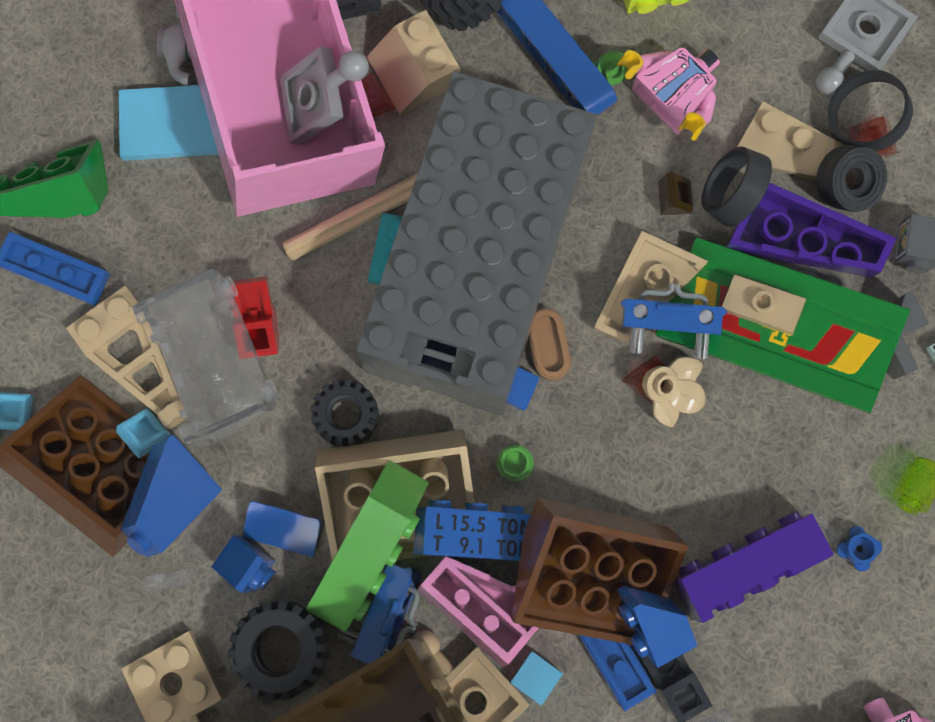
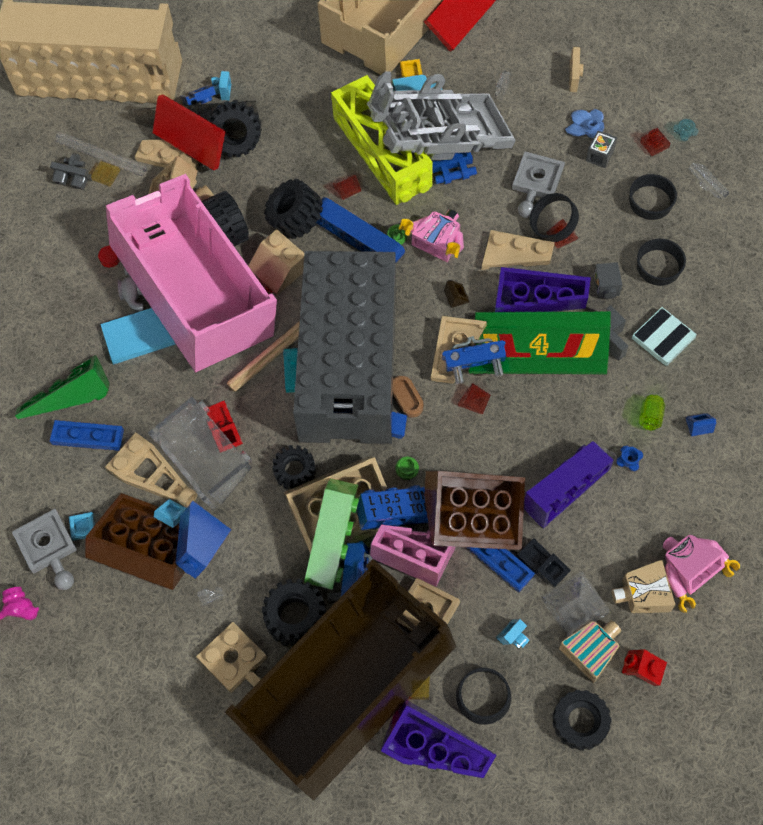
camera: 15 degrees left, 15 degrees down
(244, 565) = (258, 569): blue slope -> none
(282, 528) = (274, 544): blue slope -> none
(313, 92) = (222, 288): light grey plate -> none
(536, 678) = (459, 586): medium azure tile -> none
(658, 625) = (522, 529): blue slope -> none
(679, 390) = (493, 399): tan plate -> none
(748, 193) = (489, 287): black tyre -> none
(763, 305) = (526, 335): tan plate -> none
(870, 182) = (566, 252): black tyre -> none

